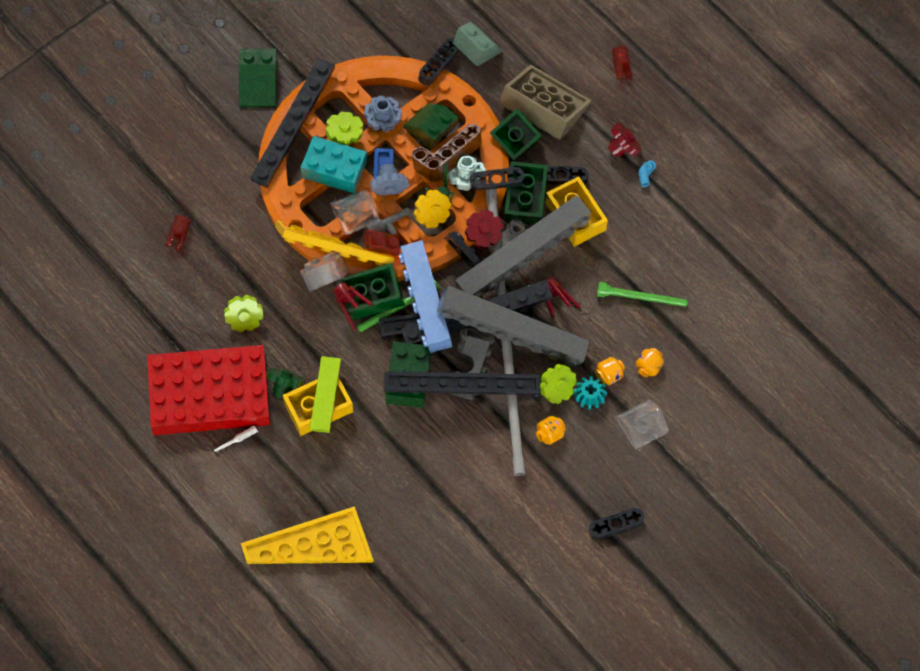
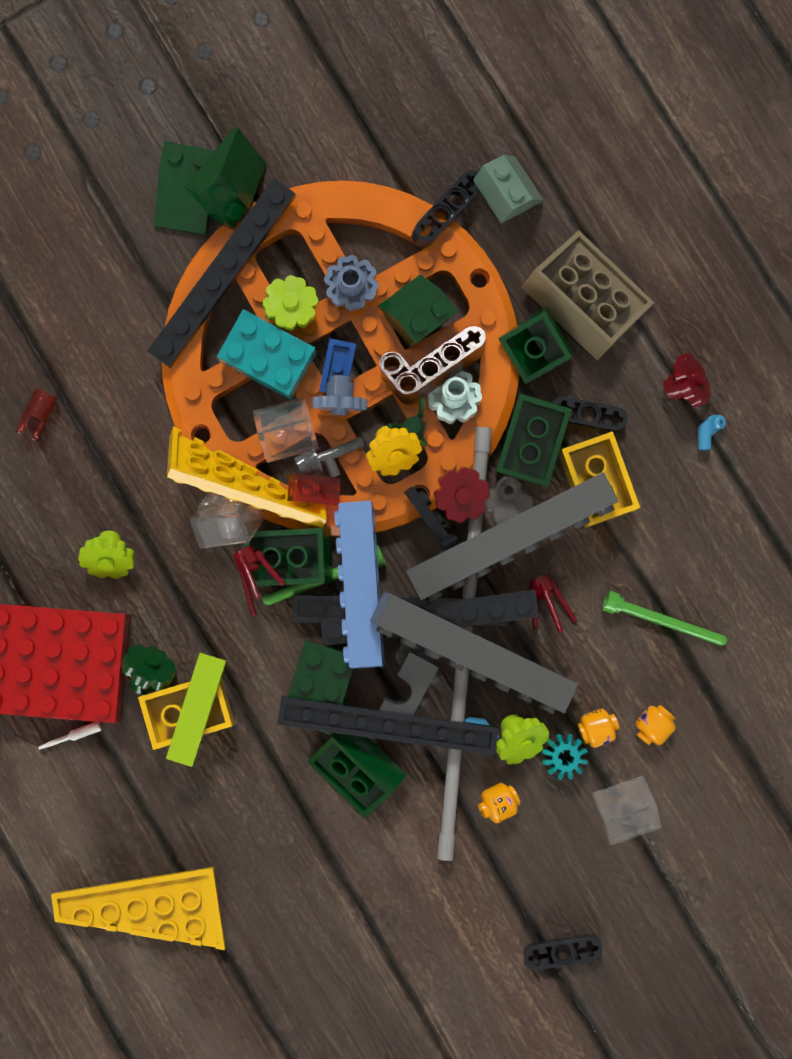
camera: 10 degrees right, 20 degrees up
(286, 66) = (228, 179): none -> dark green slope
(444, 424) = (357, 770): none -> dark green slope
(490, 173) = (502, 410): black beam -> none
(622, 62) = (710, 251): clear red hinge -> none

